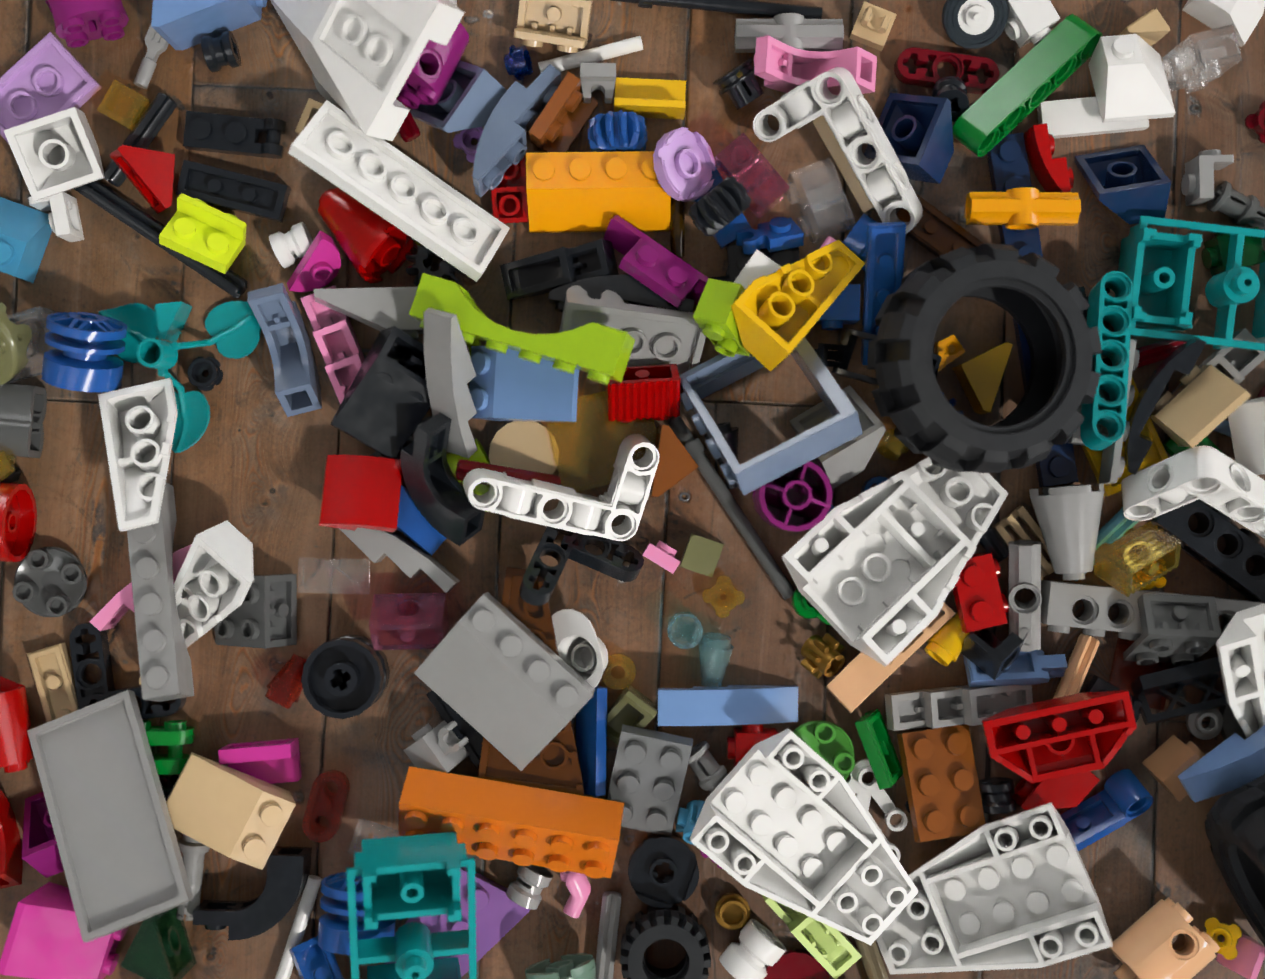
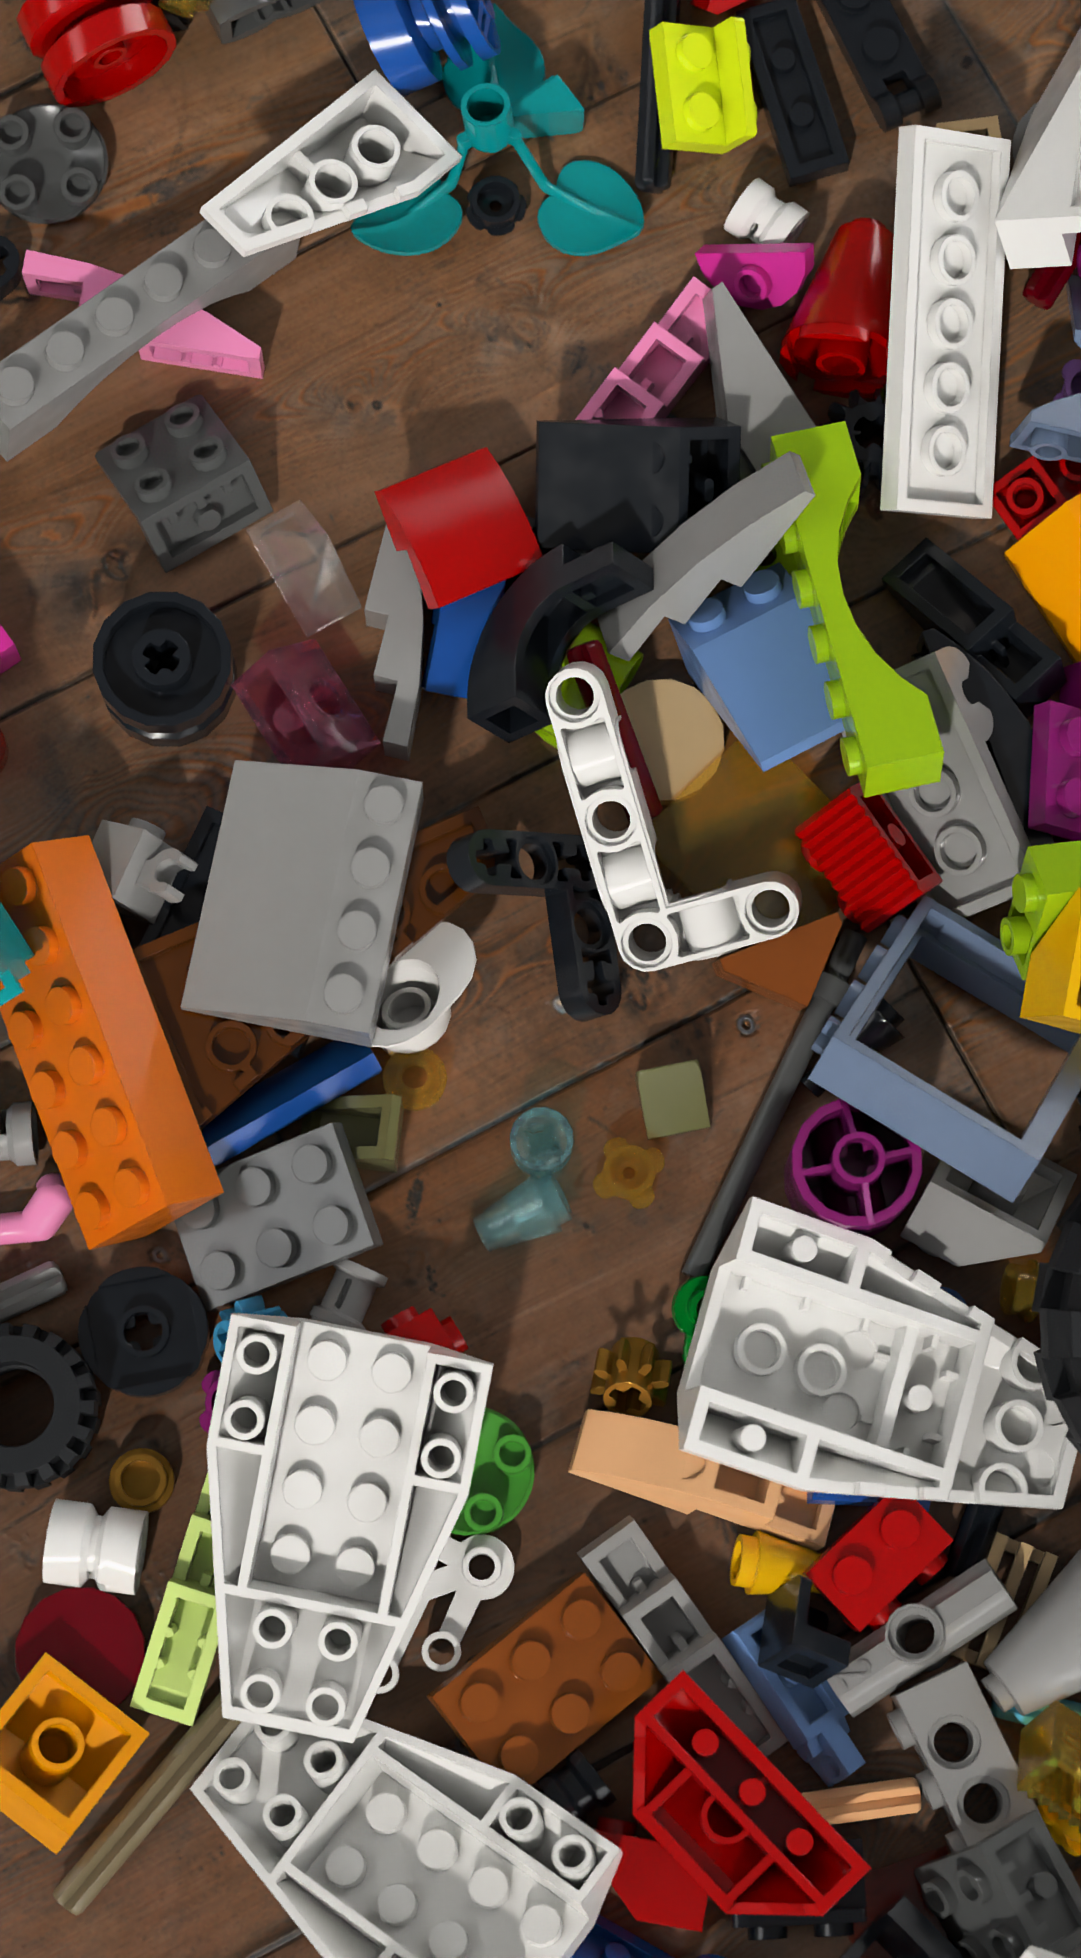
camera: 60 degrees right, 10 degrees down
(213, 579) = (198, 386): white wedge -> none
(286, 684) = (97, 591): clear red cone -> none
(290, 349) = (611, 303): sand blue arch -> none
(662, 555) = (635, 1037): bright pink plate -> none
(727, 705) = (464, 1274): medium blue slope -> none
(879, 749) = (538, 1555): green tile -> none

